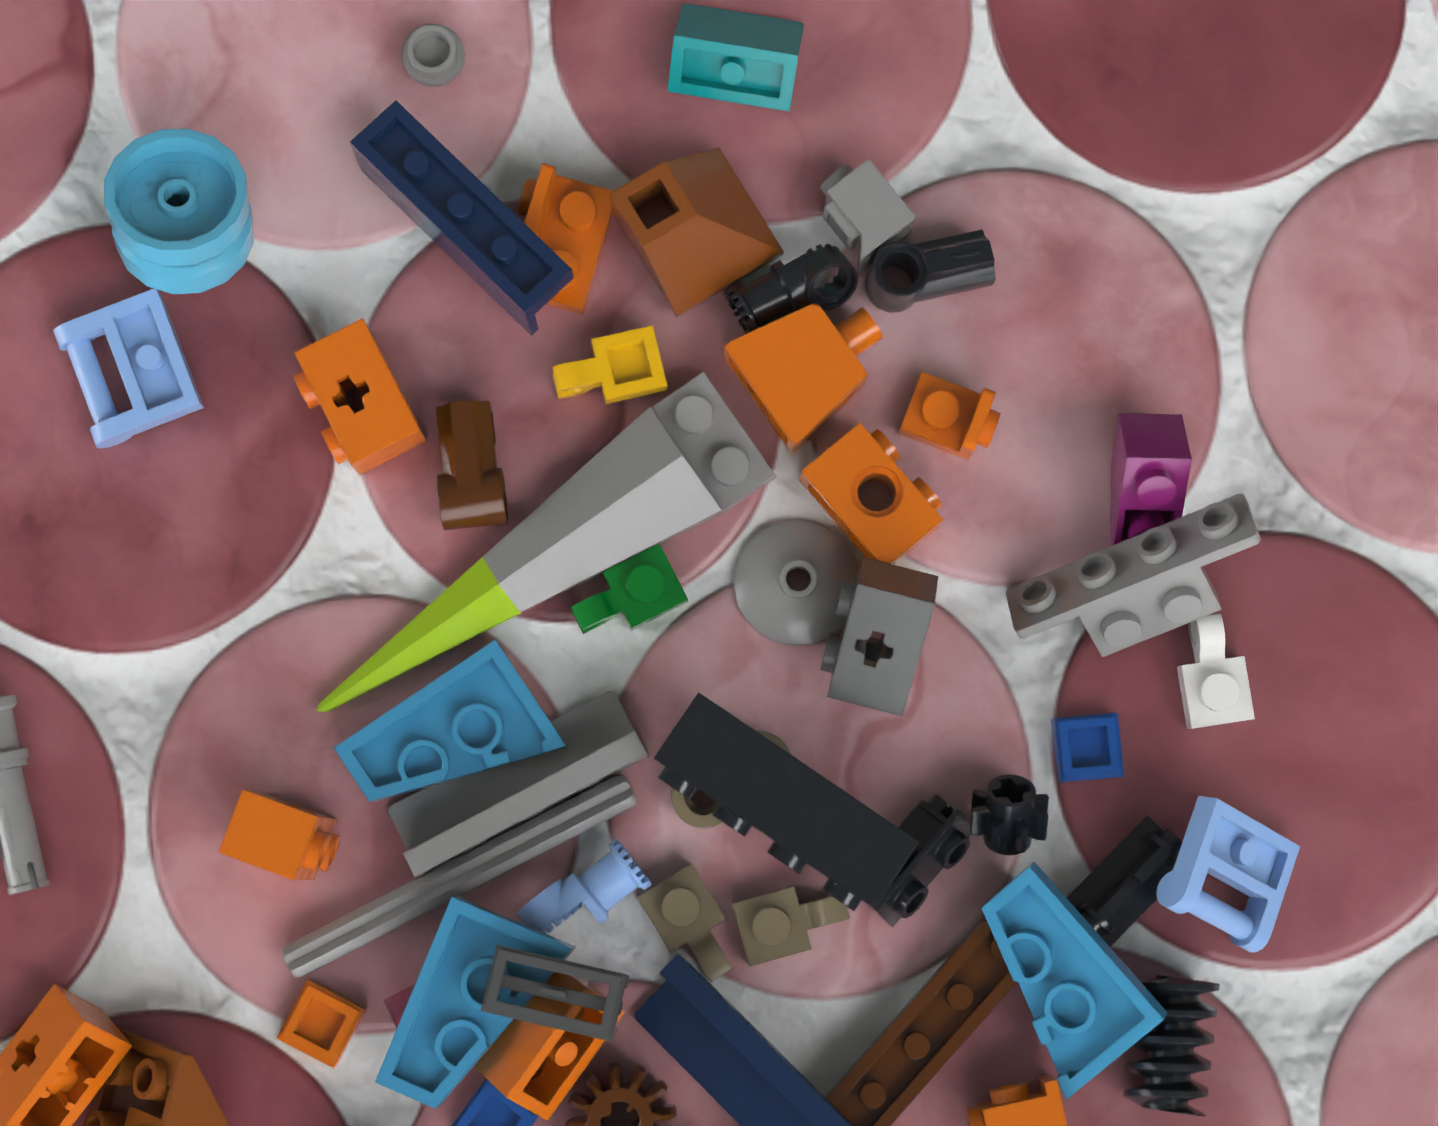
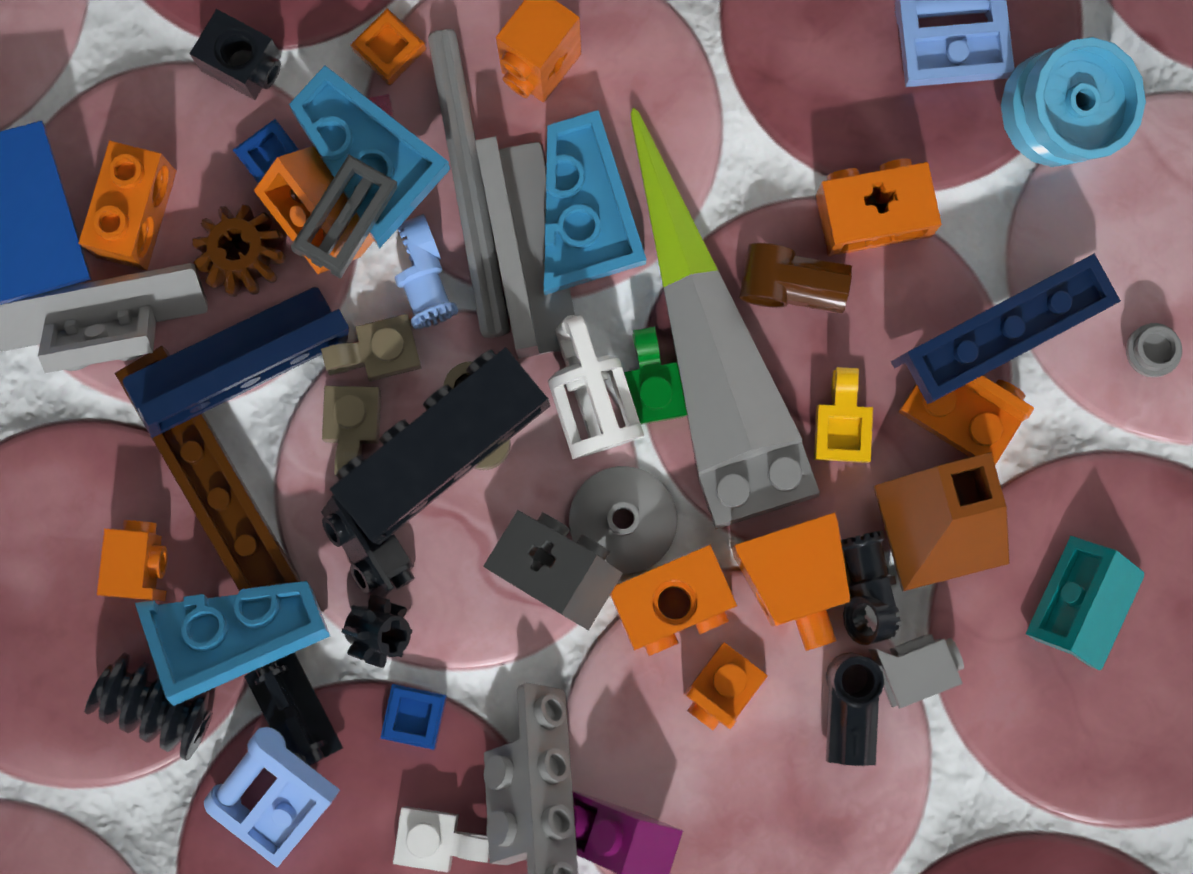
camera: 110 degrees right, 0 degrees up
(653, 665) = (586, 378): none -> white piece

